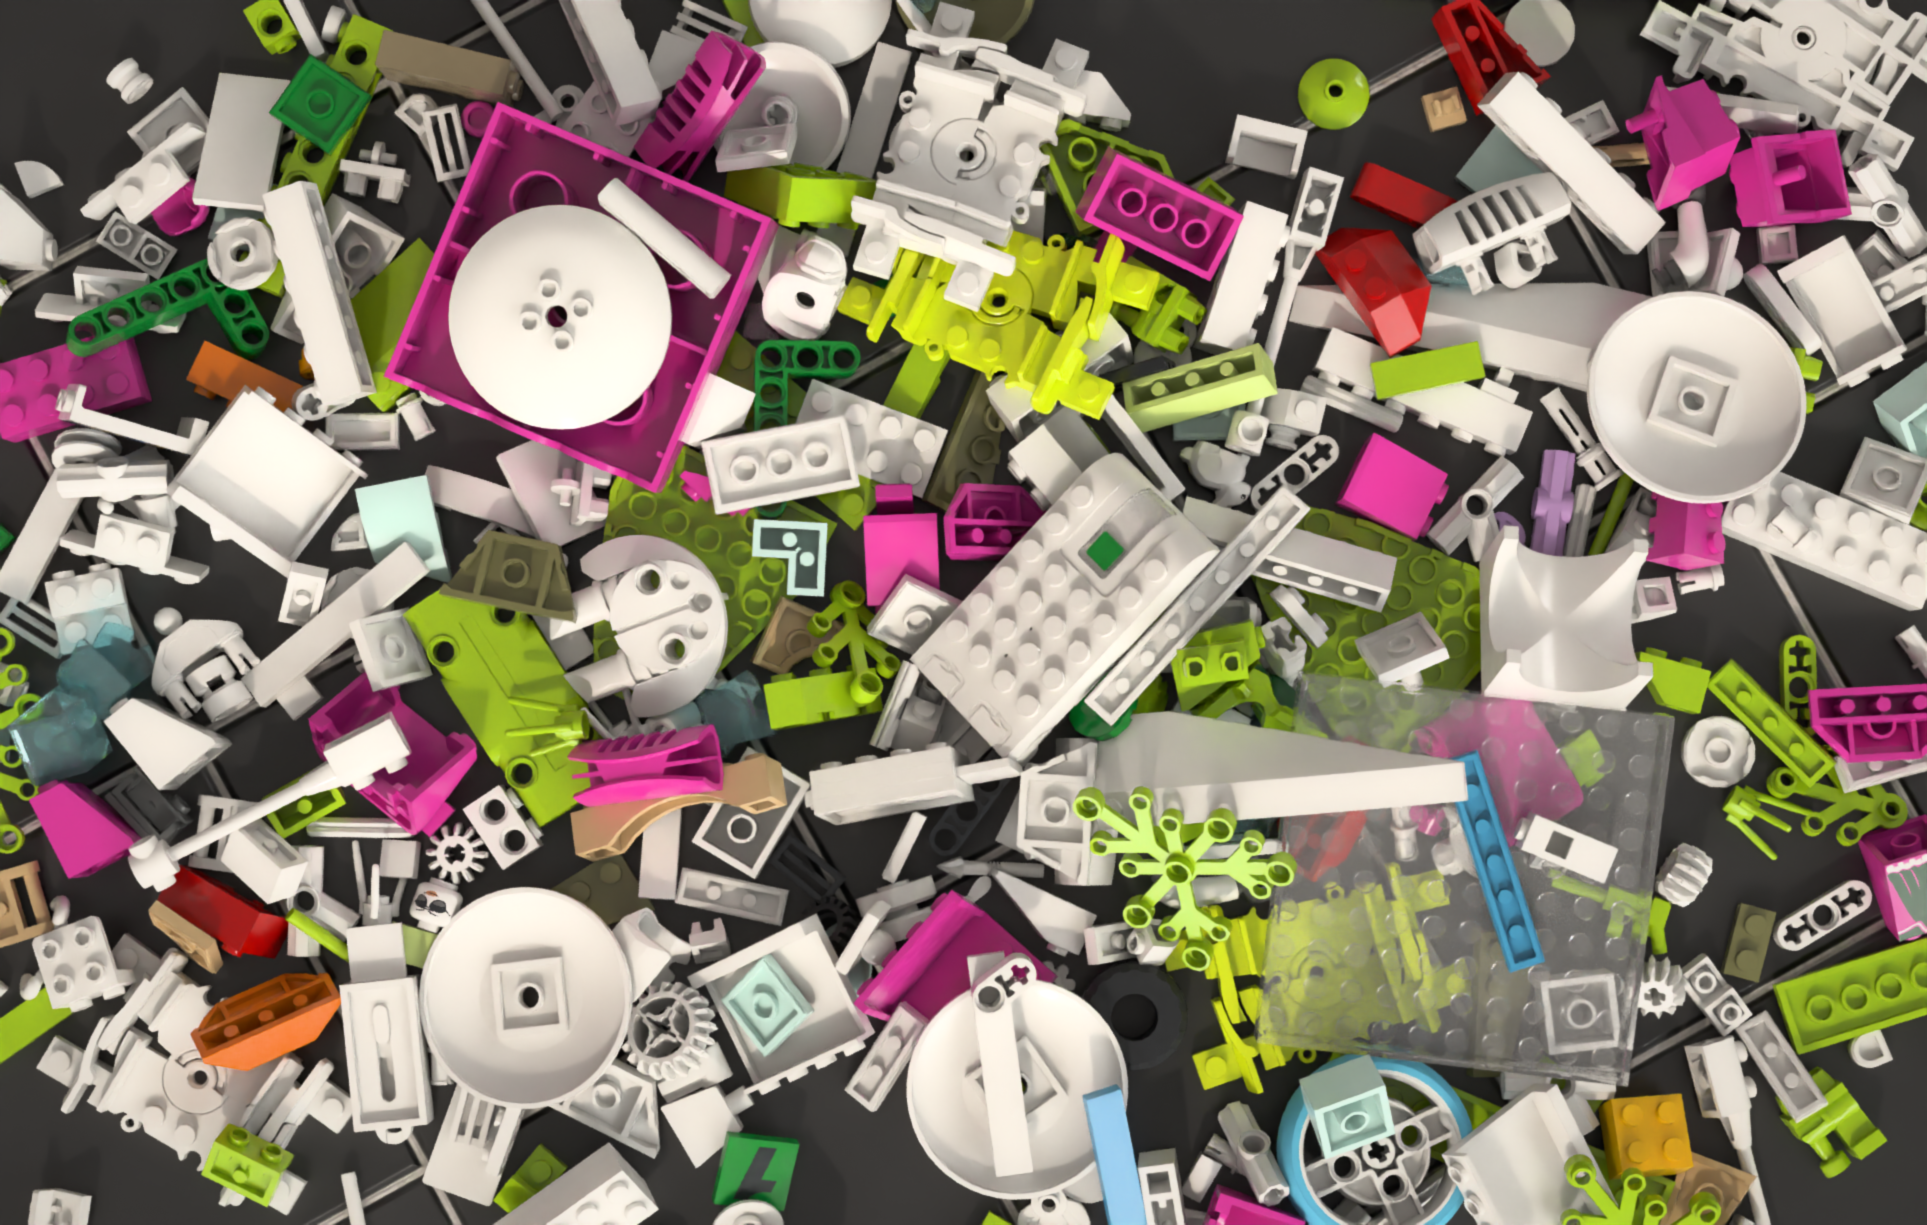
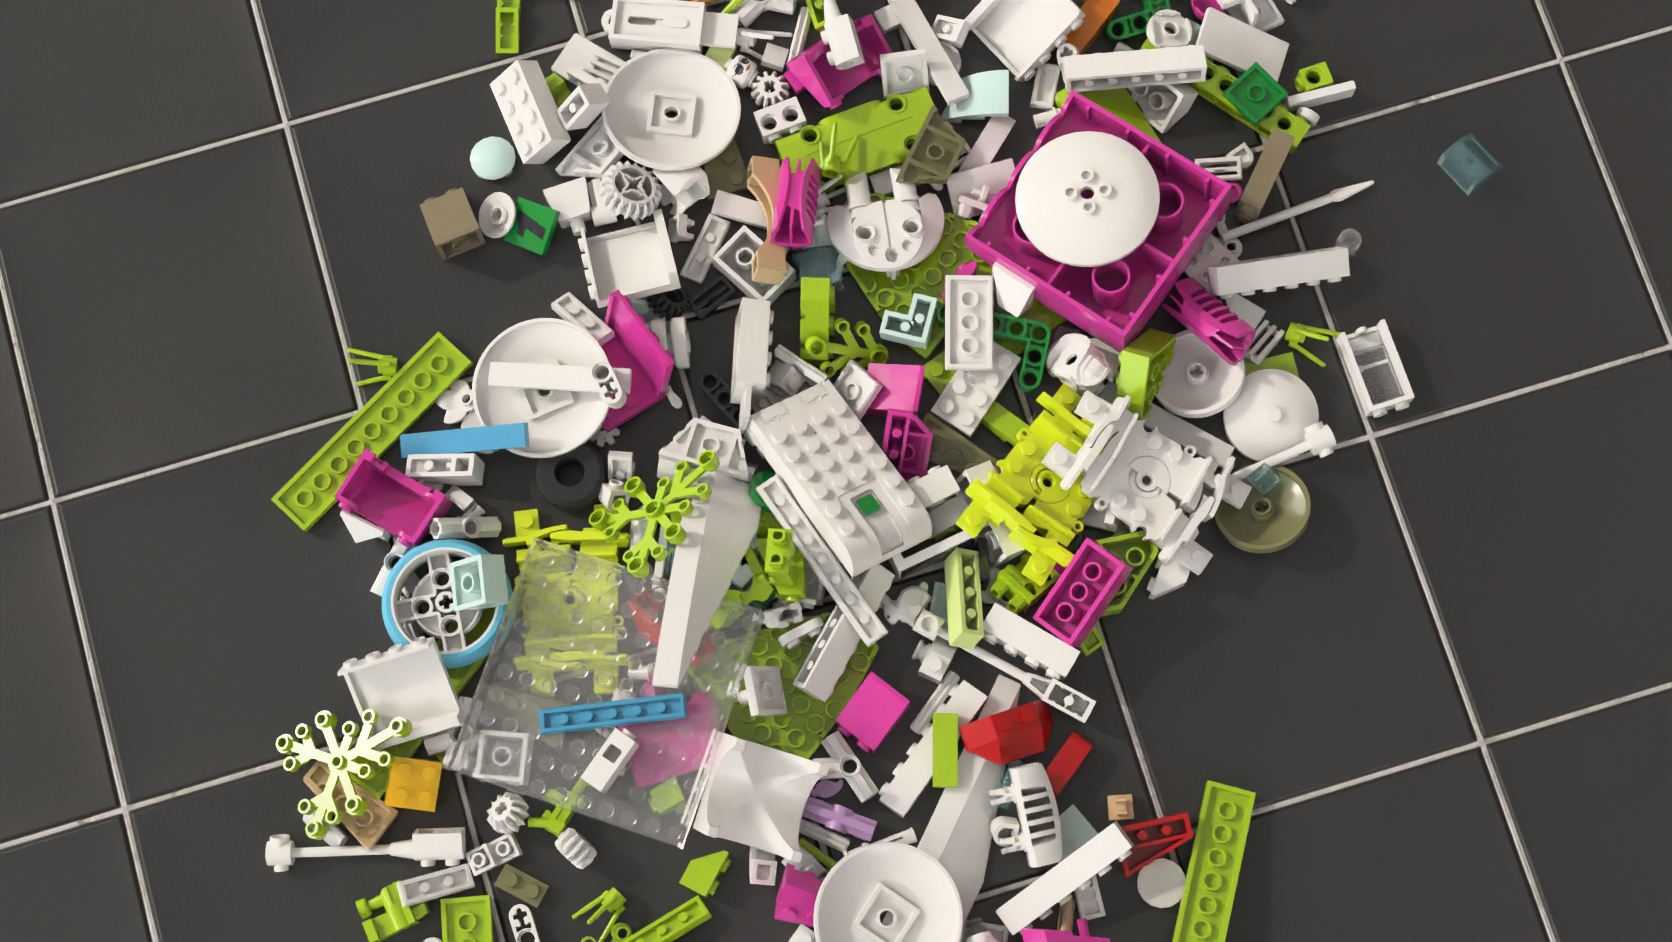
camera: 105 degrees right, 10 degrees down
(350, 535) = (981, 64): white tile -> none
(358, 173) = (1207, 112): white hips -> none
(553, 1135) = (582, 106): none -> white brick
(663, 238) = (1124, 266): white brick -> none
(756, 147) = (1176, 350): white tile -> none
(767, 1005) = (632, 251): light aqua tile -> none
(787, 637) = (857, 308): tan tile -> none
(868, 940) = (656, 312): white tile -> none
(894, 499) = (931, 393): dark pink tile -> none
(904, 846) = (710, 354): white tile -> none
(959, 867) = (691, 389): white piece -> none
(1049, 915) = (648, 436): white slope -> none
(1266, 146) = (1117, 681): white panel -> none
(1308, 450) = (909, 667): white beam -> none
(1331, 111) = (1142, 749): lime dish -> none
(1500, 385) = (924, 800): white tile -> none
(1700, 579) = (768, 907): white pin -> none
(1718, 751) = (651, 894): white tile -> none

